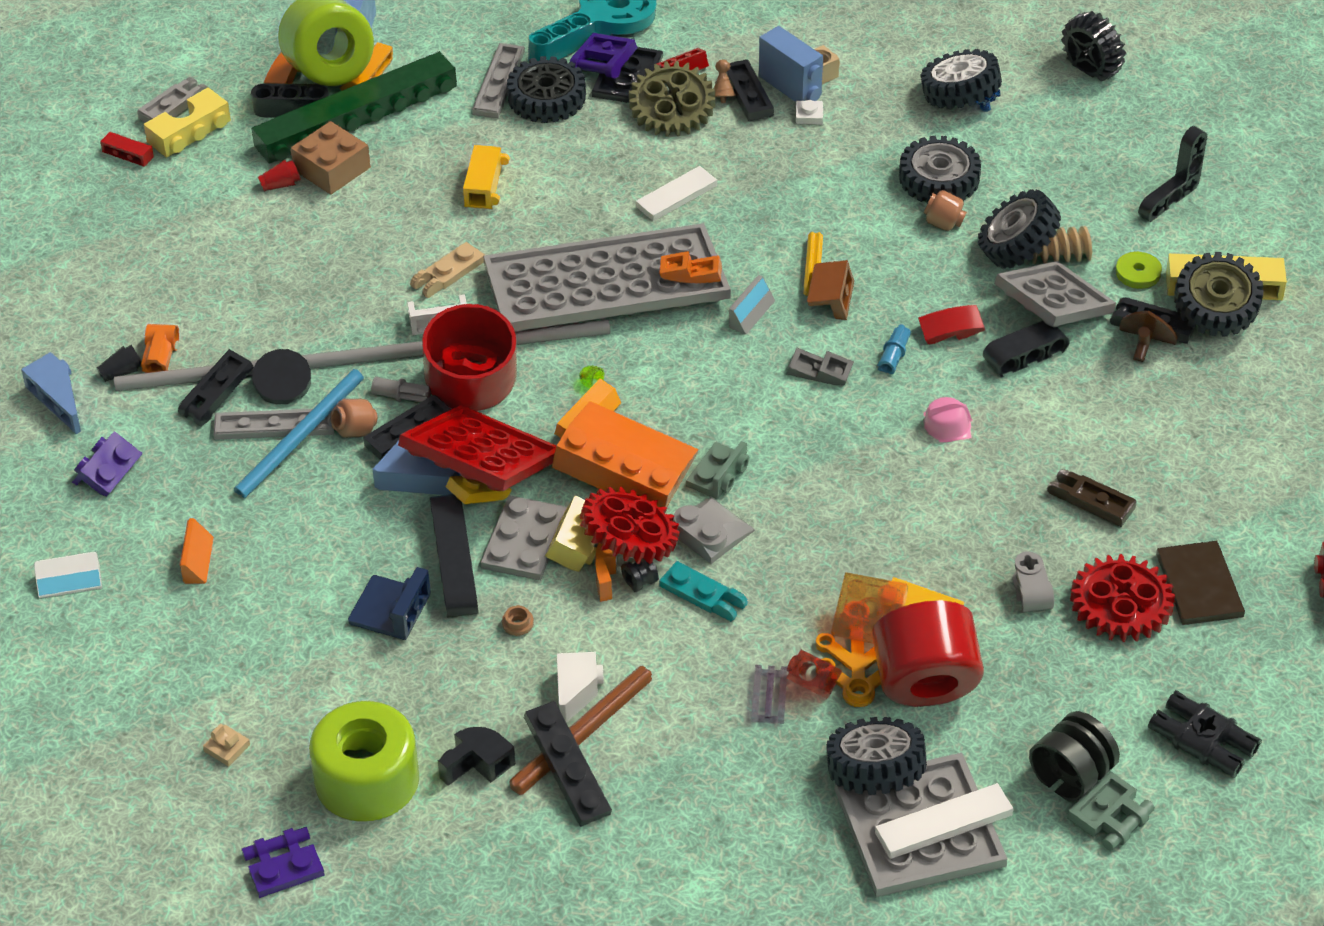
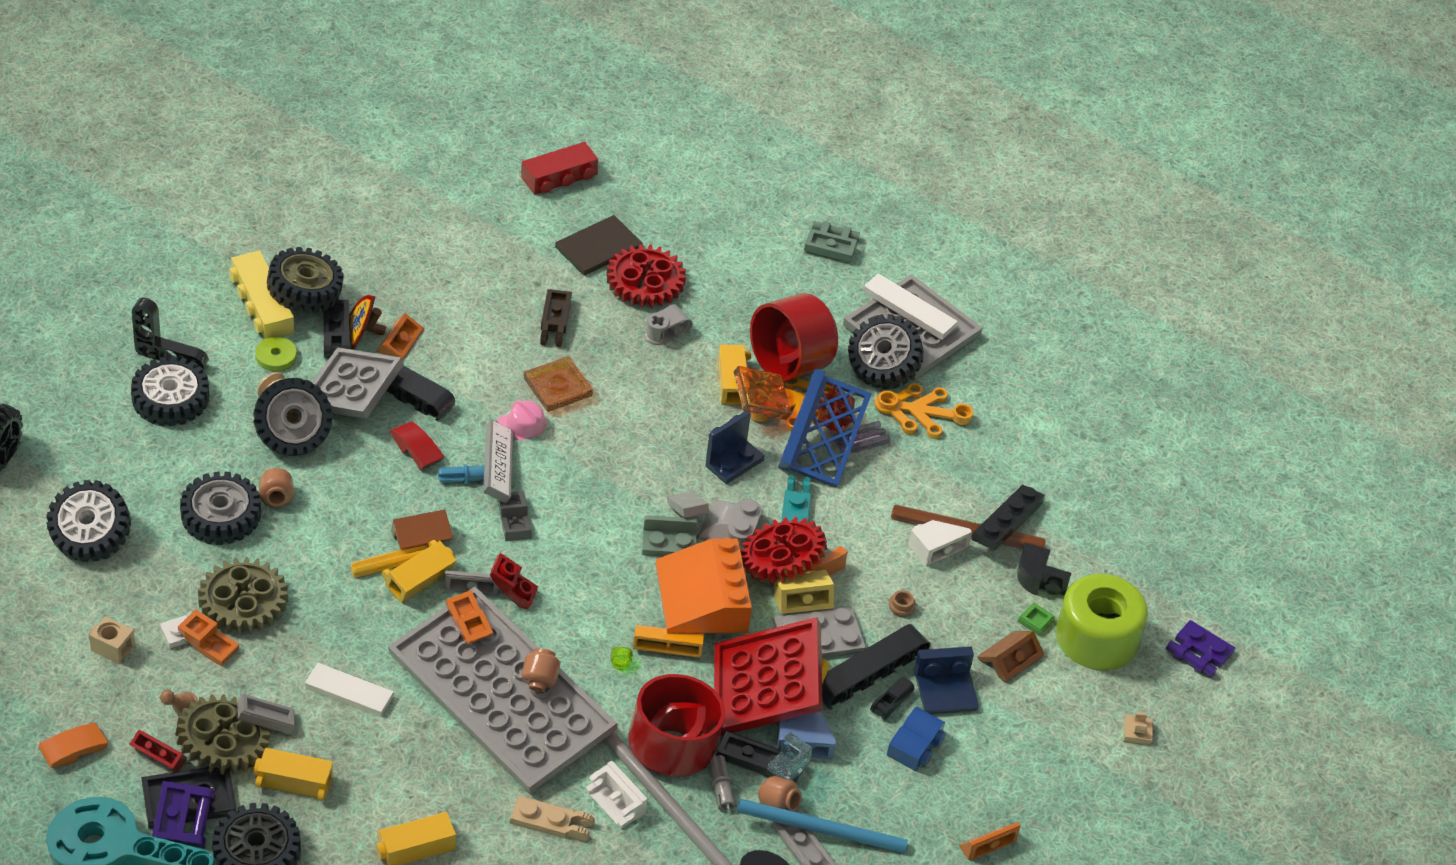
camera: 125 degrees left, 0 degrees up
(344, 548) = (916, 738): none -> blue brick
(379, 433) = (792, 759): none -> clear light blue panel
(393, 677) = (1013, 653): none -> dark orange panel
(405, 555) = (894, 696): none -> black bar
(426, 730) = (1036, 619): none -> bright green tile
(591, 283) = (540, 669): none -> nougat head
(601, 129) = (294, 773): none -> yellow brick
(675, 127) = (266, 714): none -> light grey tile
(721, 24) = (68, 745): none -> orange slope
(725, 319) = (508, 579): none -> red slope
(748, 489) = (688, 504): none -> light grey tile
(749, 91) = (178, 679): black plate -> none
(780, 270) = (419, 571): none -> yellow brick
(782, 769) = (920, 409): none -> light orange plant
(790, 65) = (137, 647): medium blue brick -> none
(791, 119) = (204, 636): none -> orange slope
(796, 617) = (803, 422): none -> blue fence
(803, 561) = (729, 451): none -> dark blue bracket
(823, 155) = (243, 595): none -> olive gear
(890, 367) = (498, 461): none -> tile
(985, 461) = (558, 383): none -> clear orange plate
(1077, 753) = (814, 254): pearl dark grey wheel -> none
(1113, 178) = (170, 391): none -> wheel
(1119, 367) = (400, 337): none -> orange slope
(1205, 733) = (737, 210): black pin -> none

